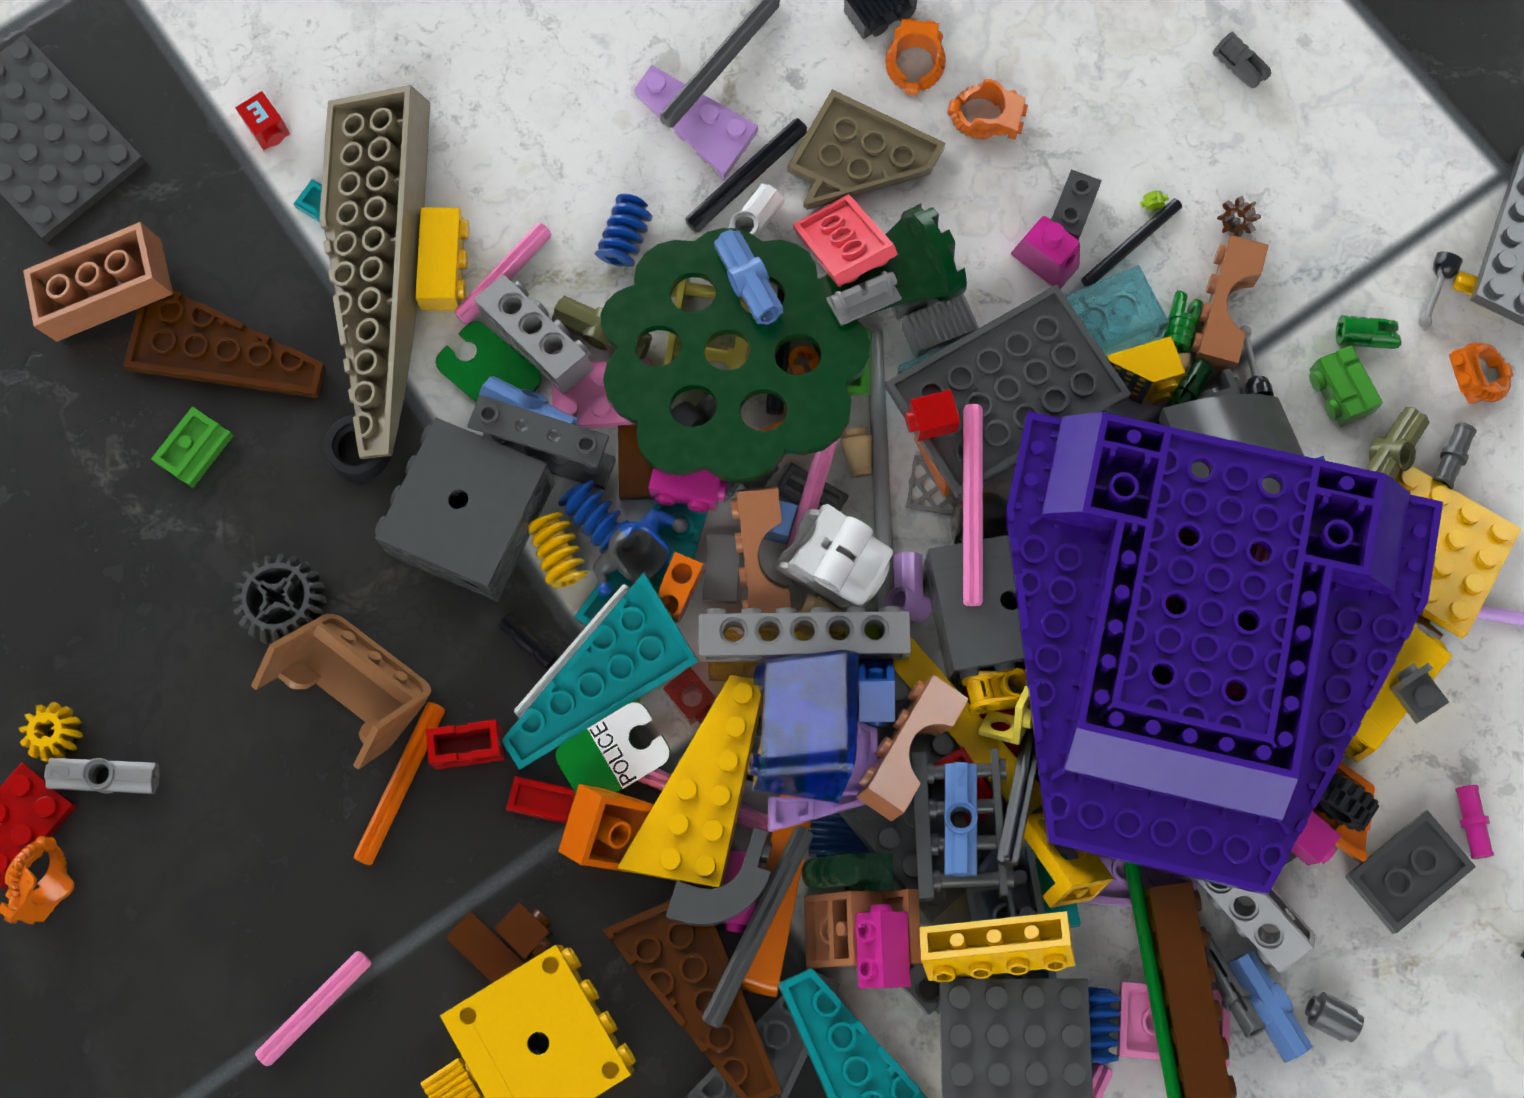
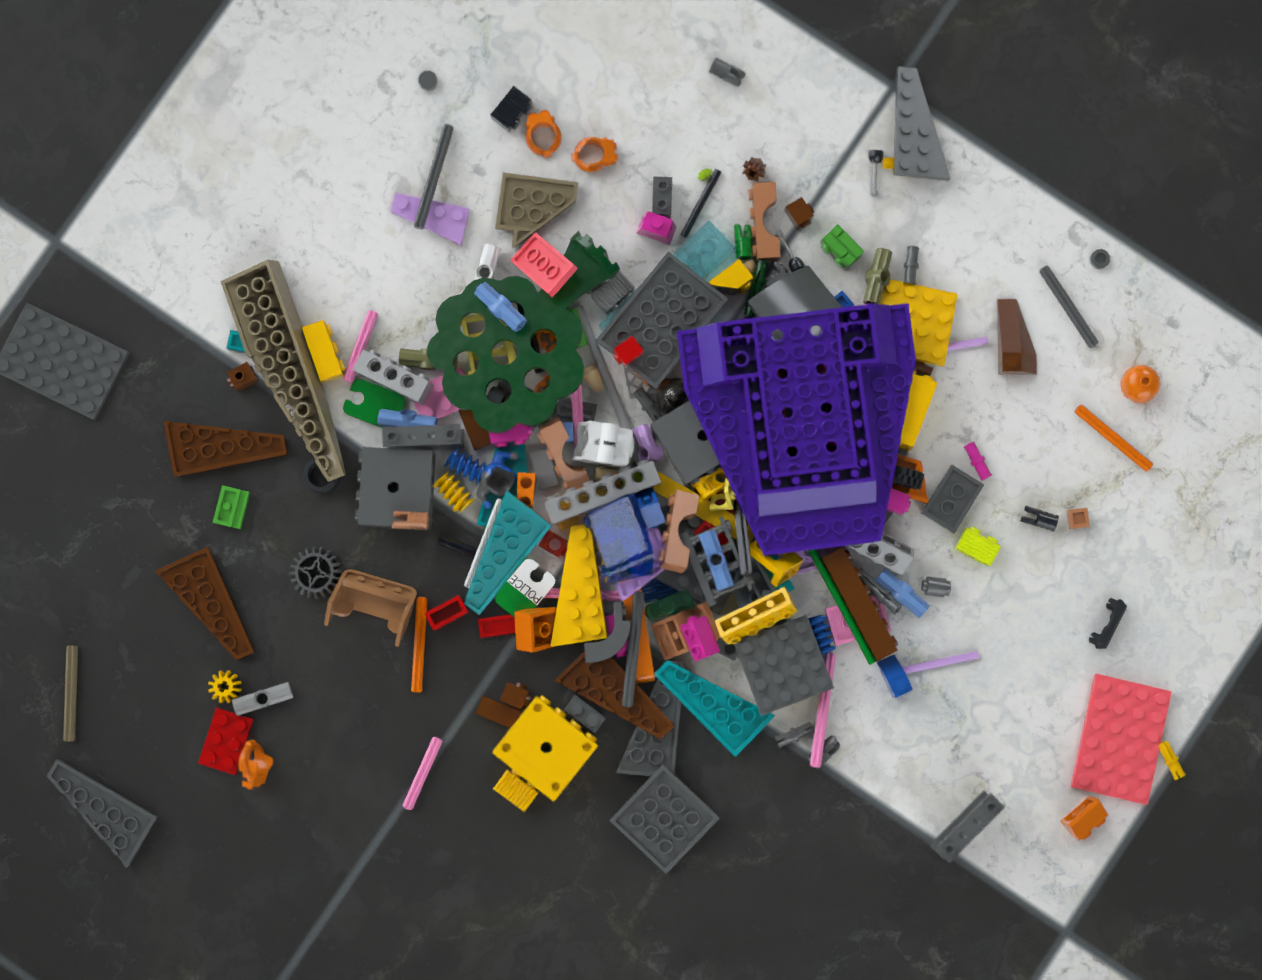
camera: 25 degrees left, 10 degrees up
(89, 571) = (206, 595): none -> reddish brown wing
(97, 282) = (141, 435): nougat brick -> none
(262, 120) = (188, 306): red brick -> none
(298, 253) = (242, 376): none -> reddish brown brick
(467, 562) = (415, 520): none -> nougat hinge
(623, 229) = (418, 299): blue piece -> none
(632, 1010) = (585, 714): none -> dark grey brick
(746, 175) = (473, 239): black axle -> none
(864, 298) = (567, 297): light grey hinge -> none
(932, 522) = (647, 404): none -> dark grey pin
(973, 505) = (665, 391): bright pink axle -> none
(1291, 310) = (800, 213): none -> reddish brown brick
(1367, 332) = (844, 211): green hinge -> none
(1418, 692) = (925, 409): dark grey bracket -> none
(1432, 973) = (977, 546): none -> neon yellow brick
(1471, 377) = (904, 218): orange piece -> none

